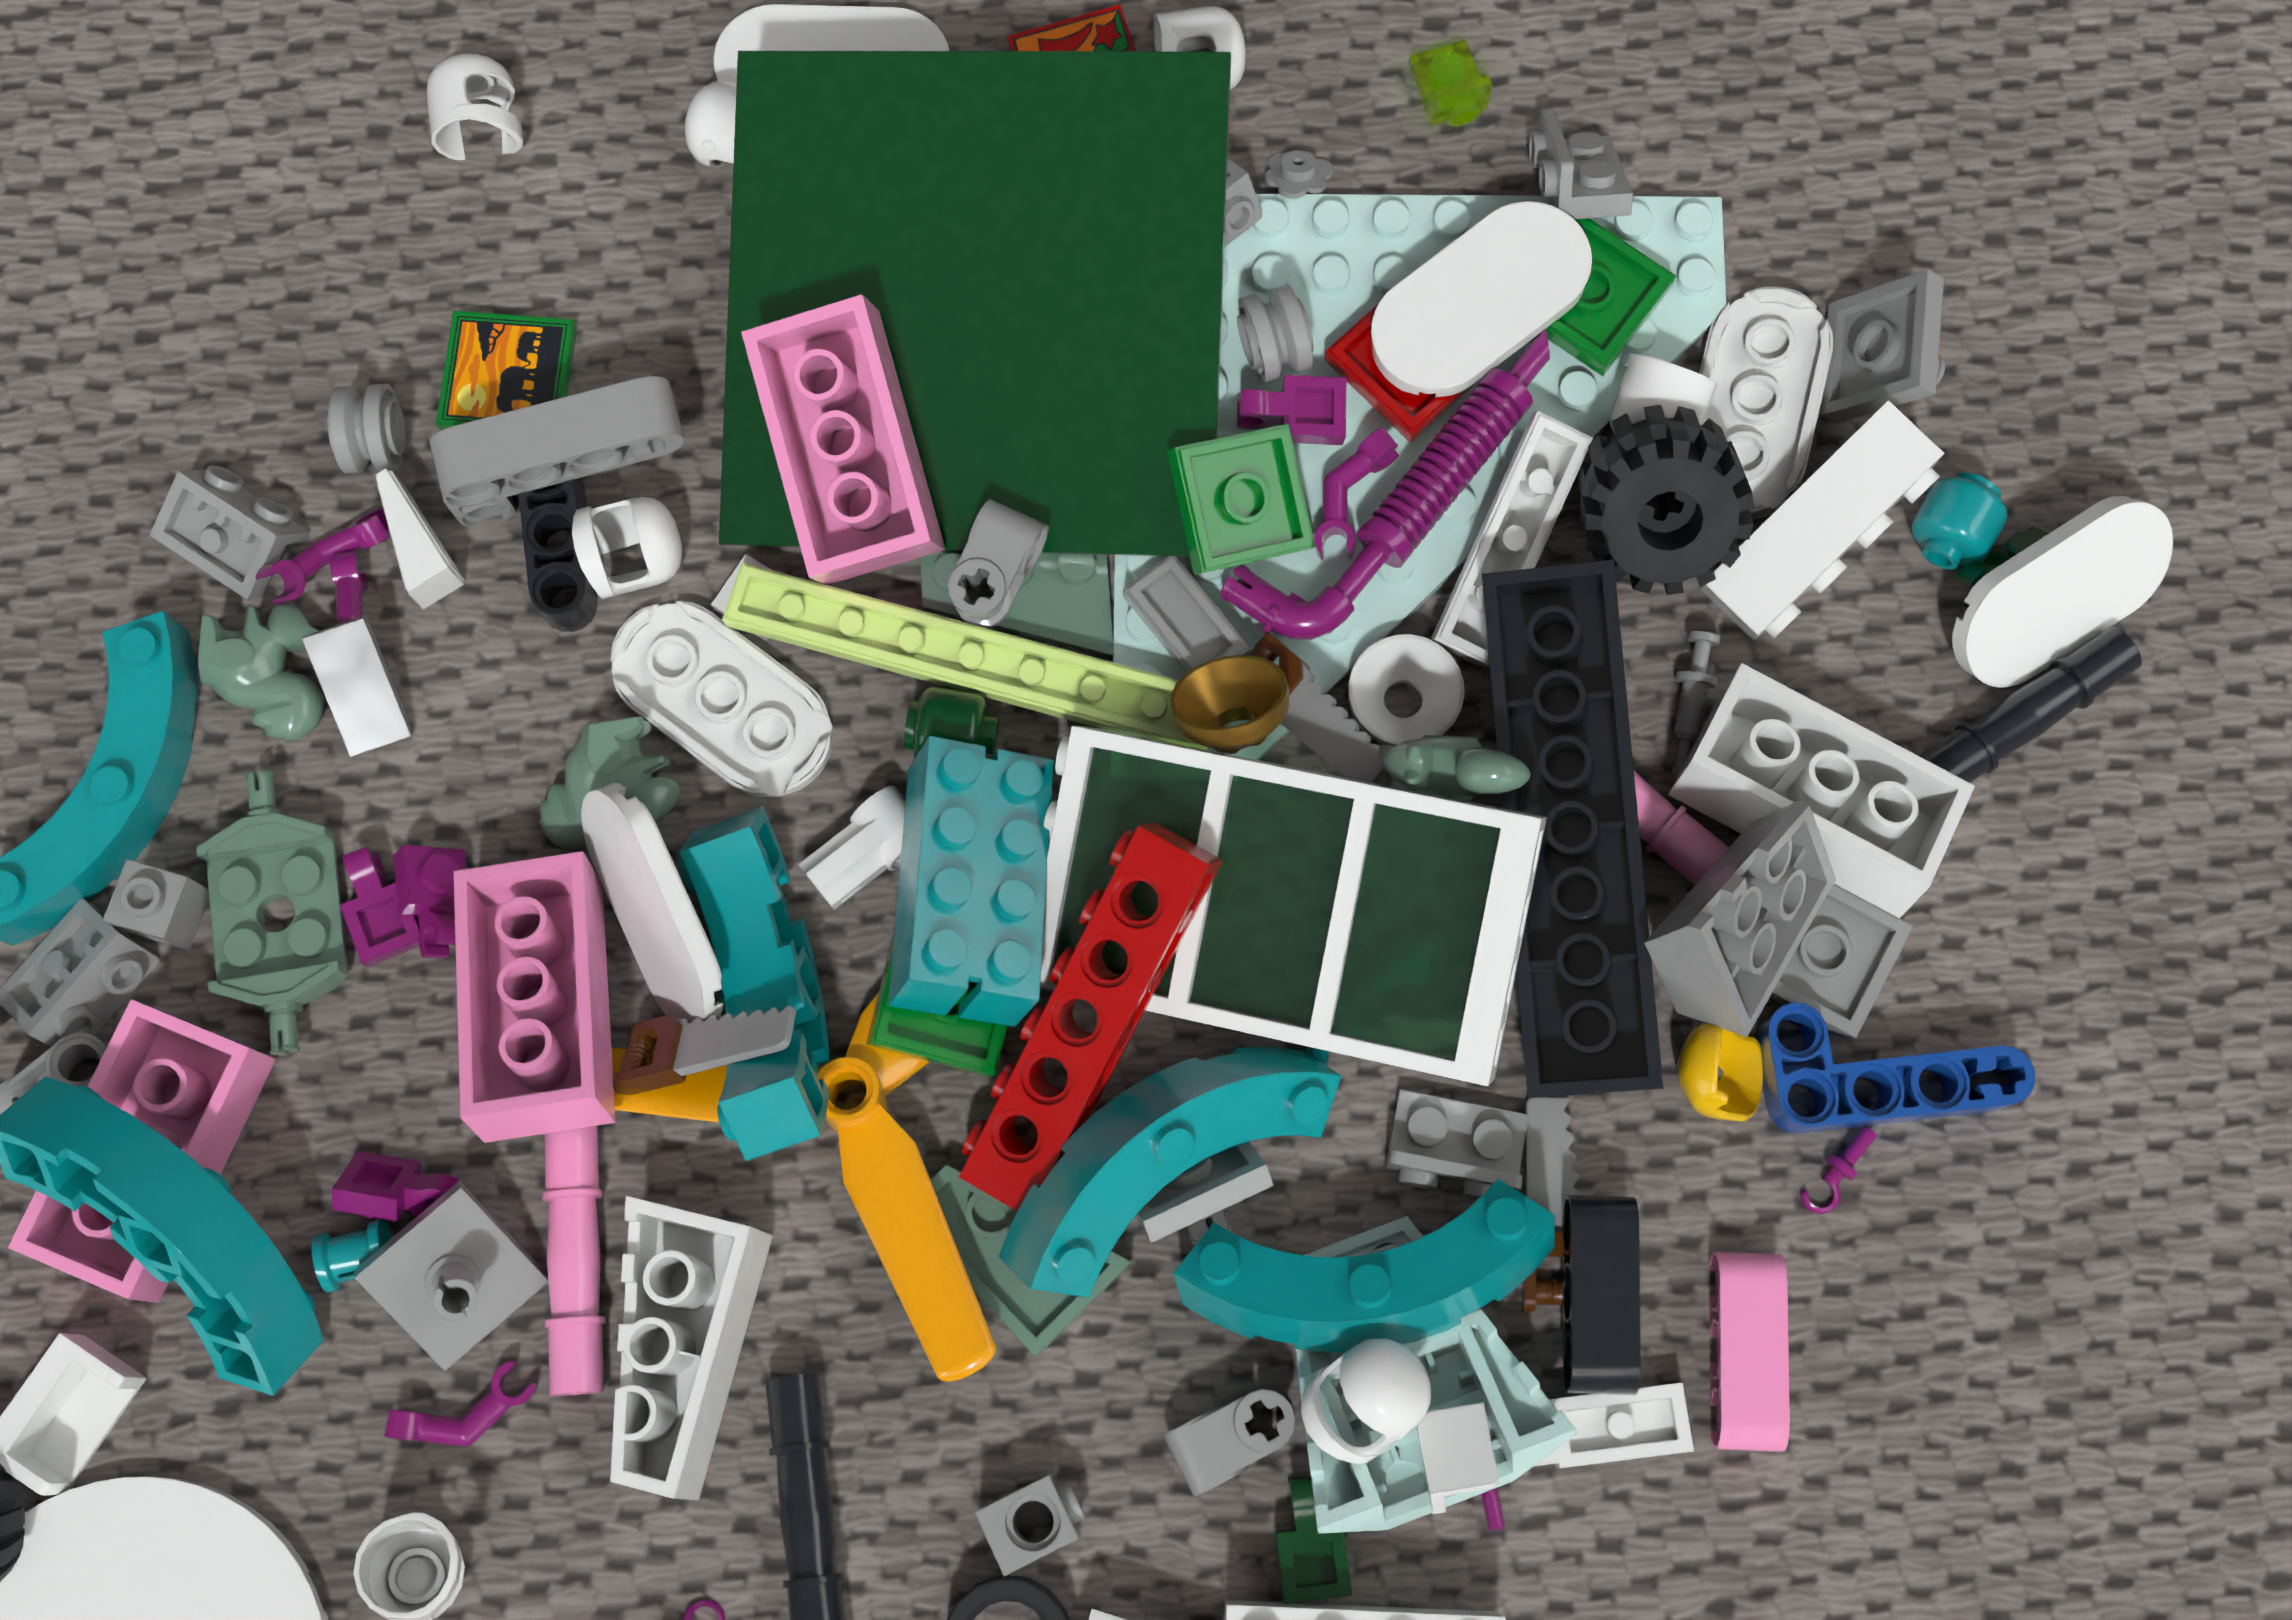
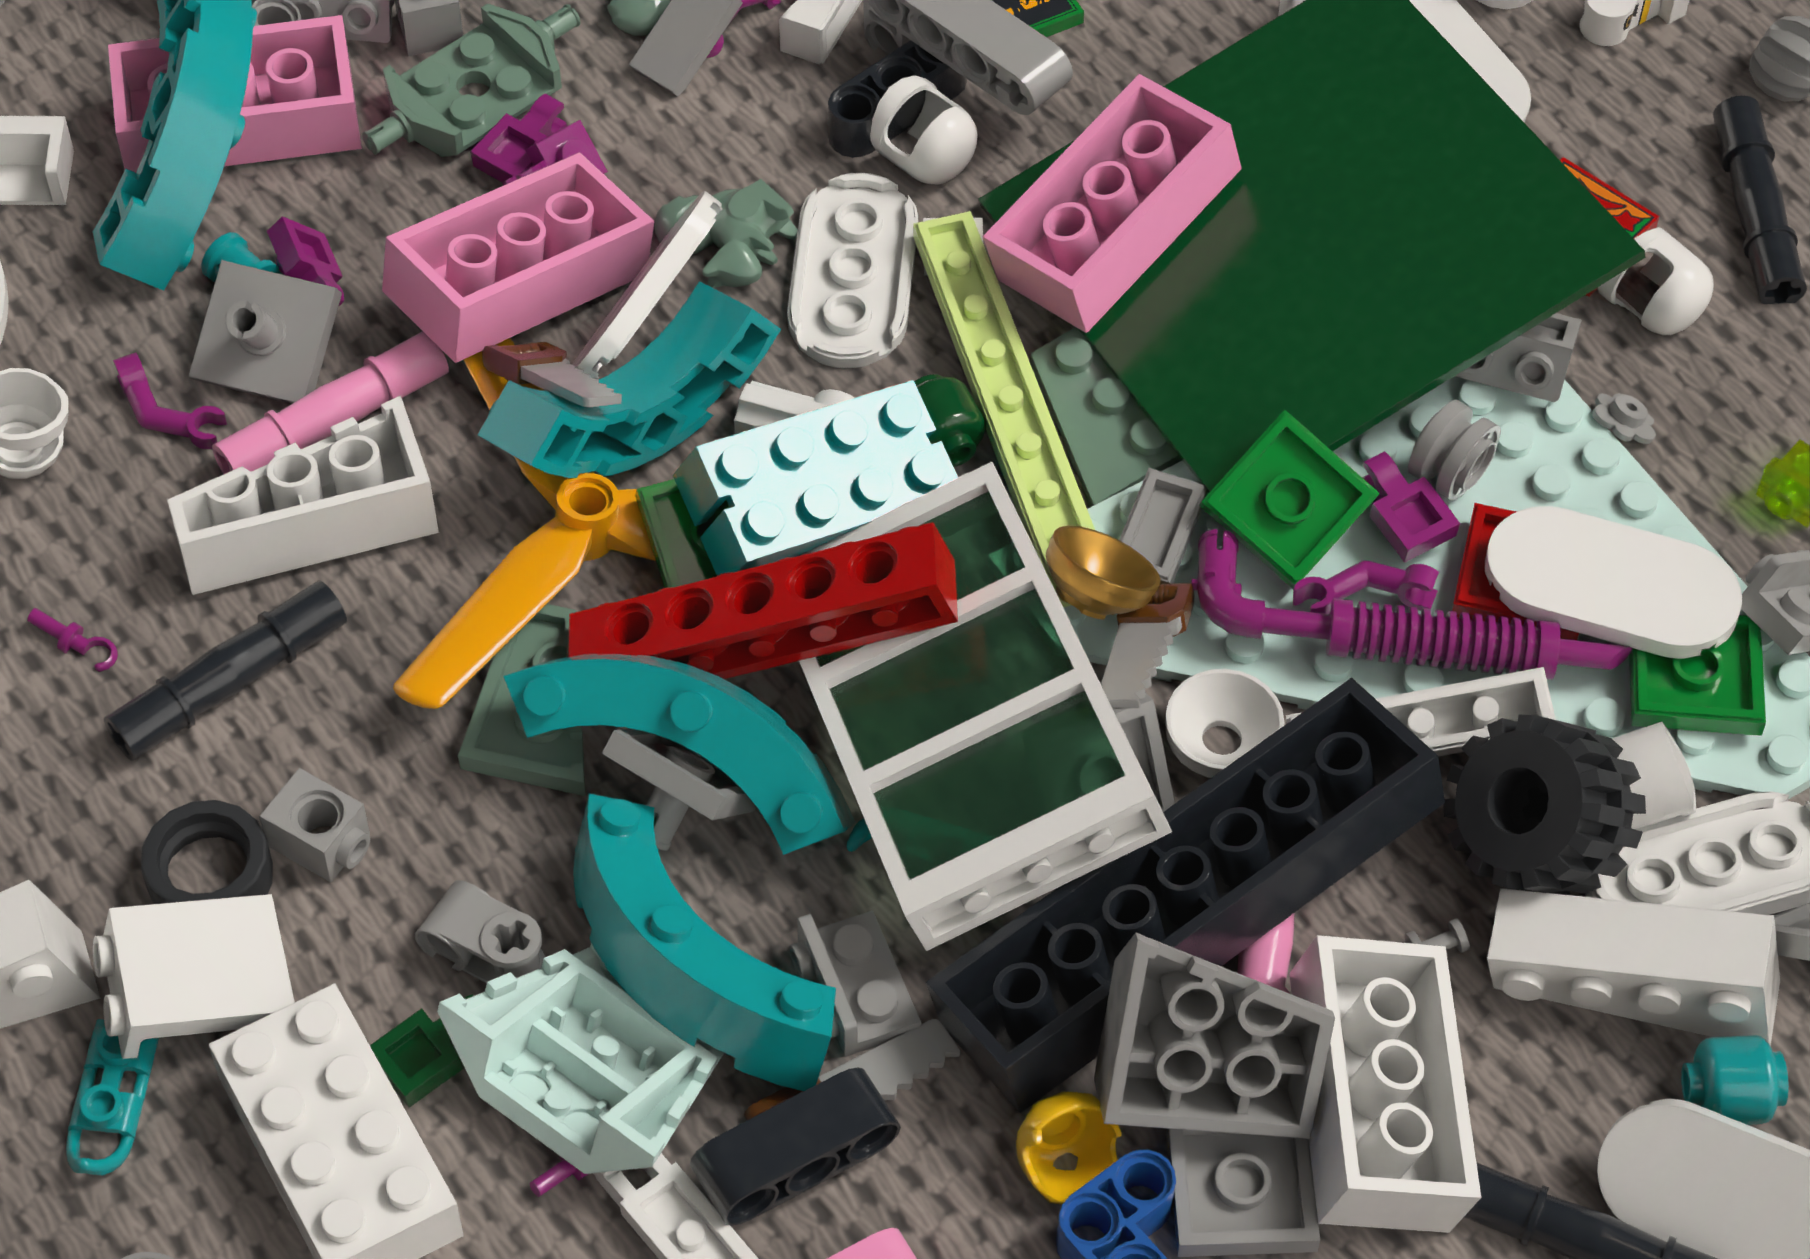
camera: 55 degrees right, 20 degrees down
(1000, 554) = (1102, 363): light grey piece -> none
(1384, 1389) = (589, 984): white helmet -> none
(1453, 767) = (1163, 745): sand green animal -> none
(1456, 1453) = (572, 1079): white panel -> none

